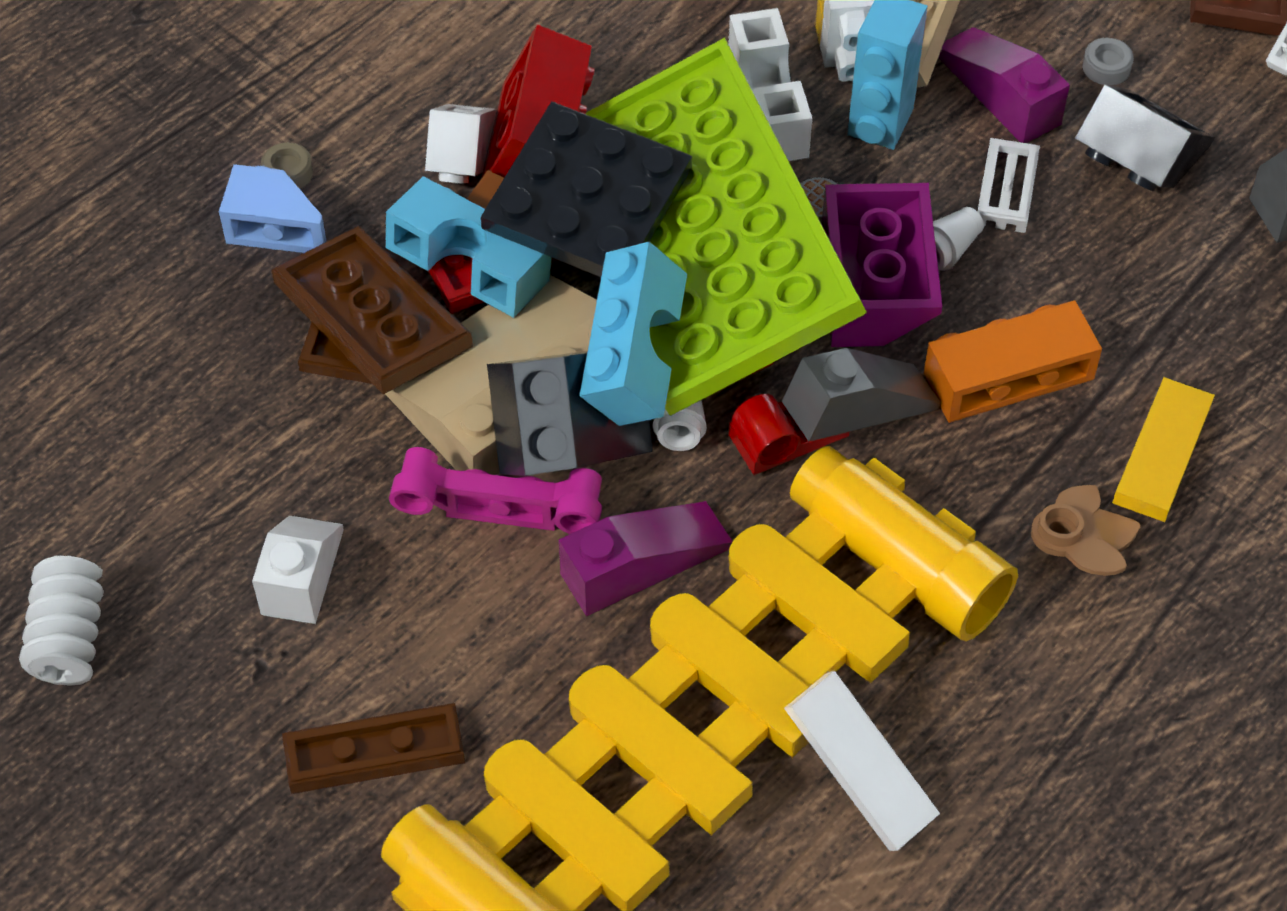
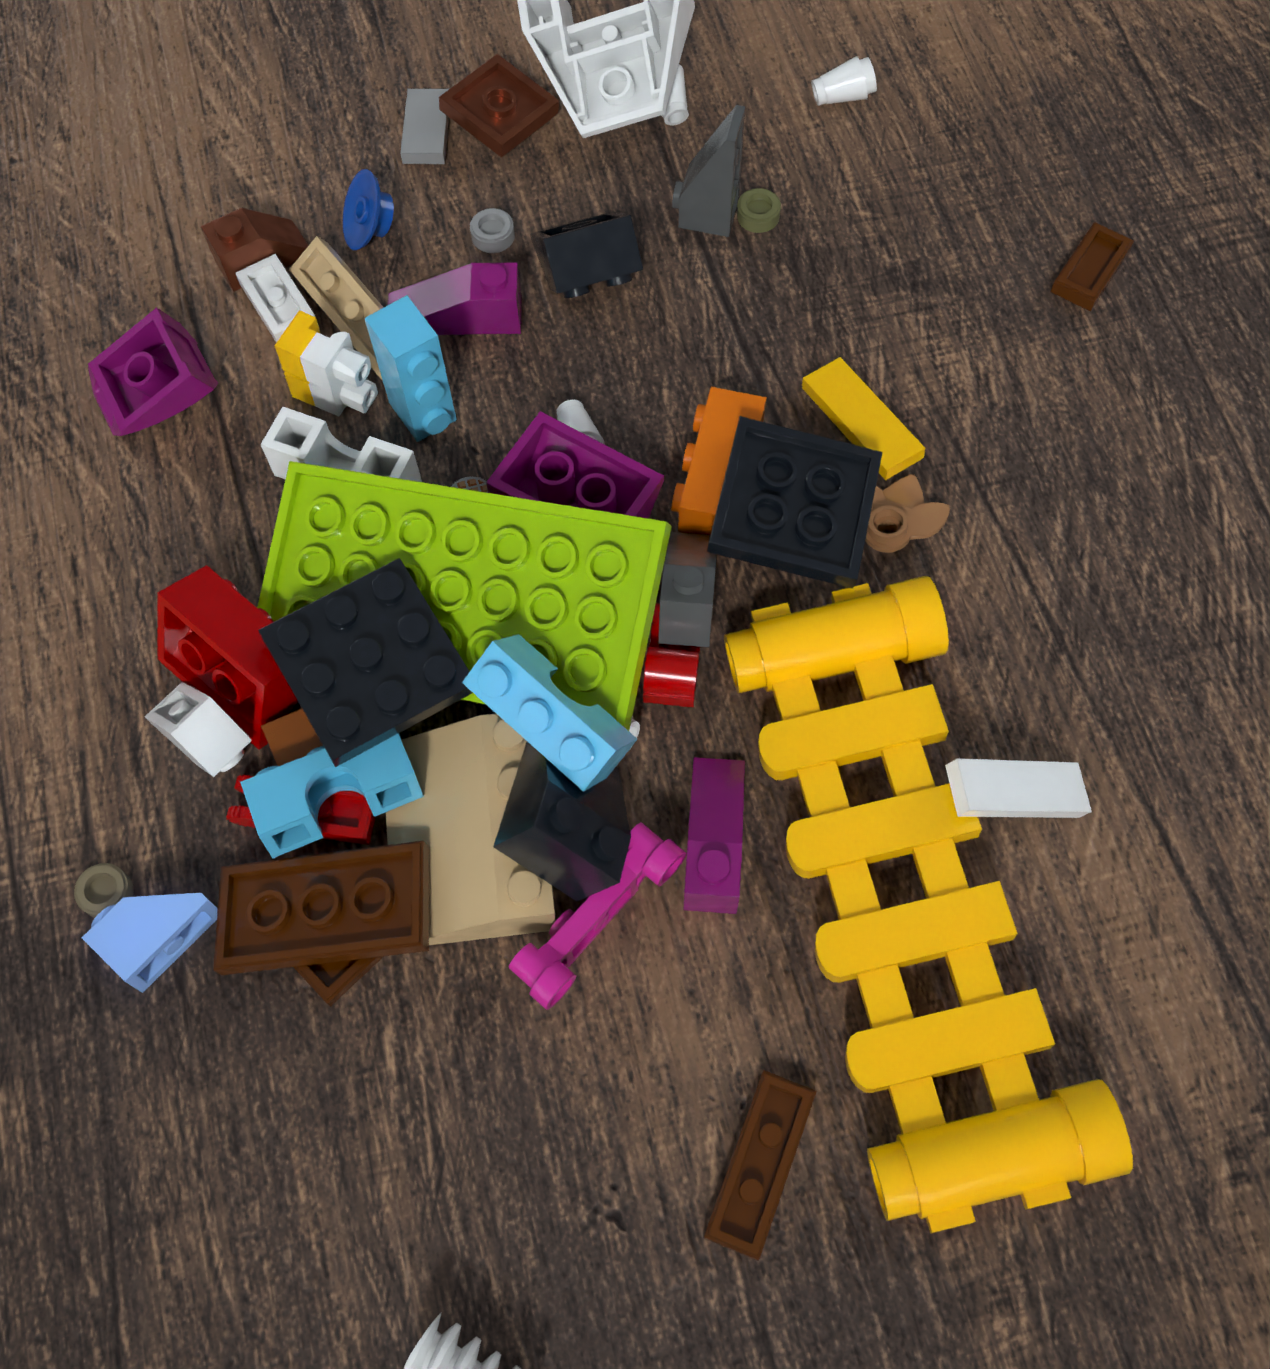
camera: 55 degrees left, 10 degrees up
(296, 568) = (542, 1123): white slope -> none
(1003, 214) = (577, 389): white tile -> none
(1004, 423) = (795, 502): none -> black plate

